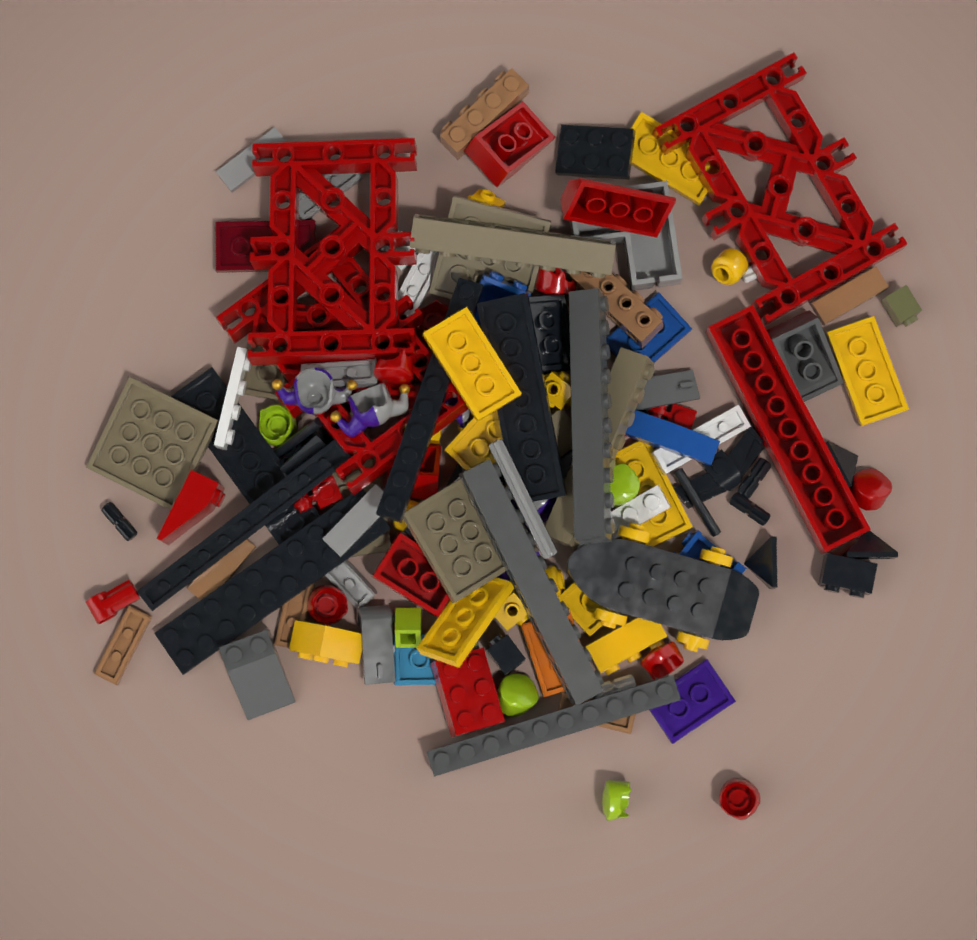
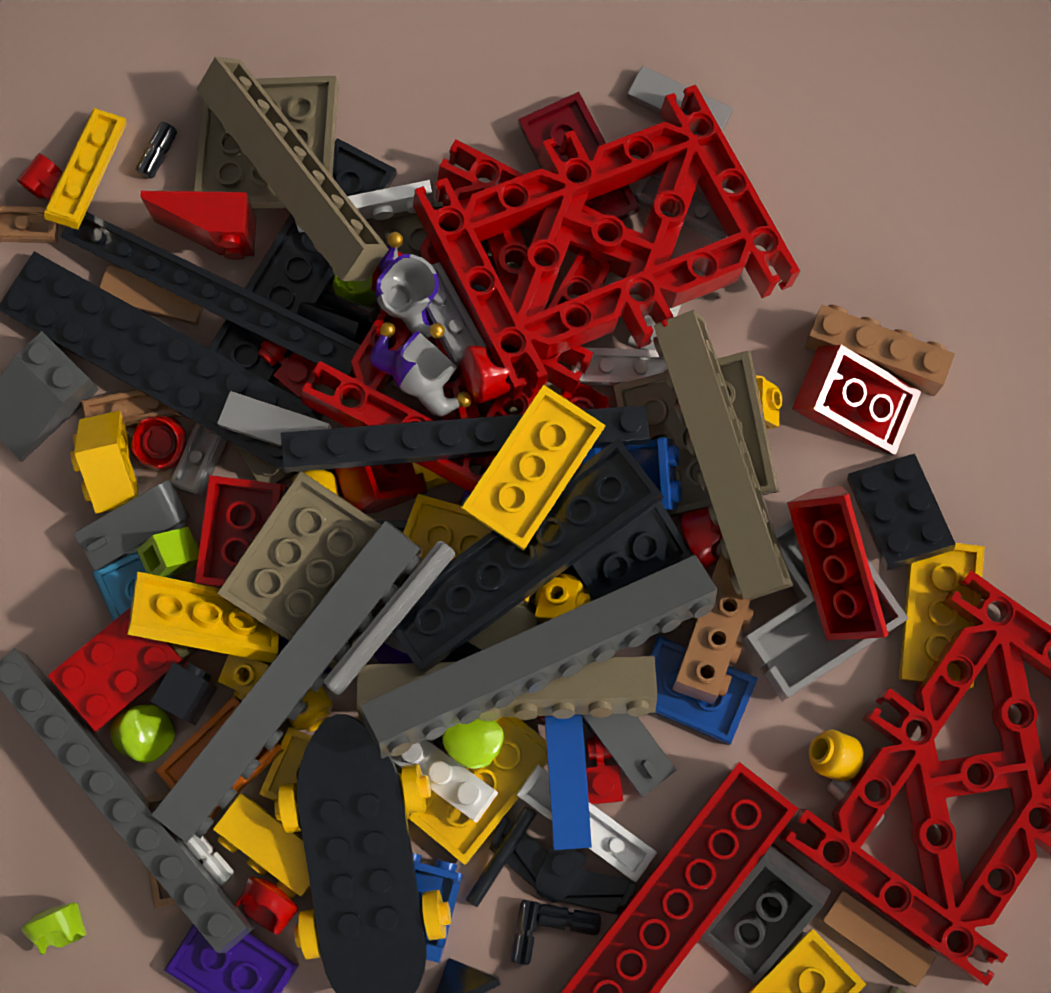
camera: 65 degrees right, 5 degrees down
(113, 573) = (85, 169): none -> yellow tile
(189, 432) = (292, 170): none -> dark tan brick

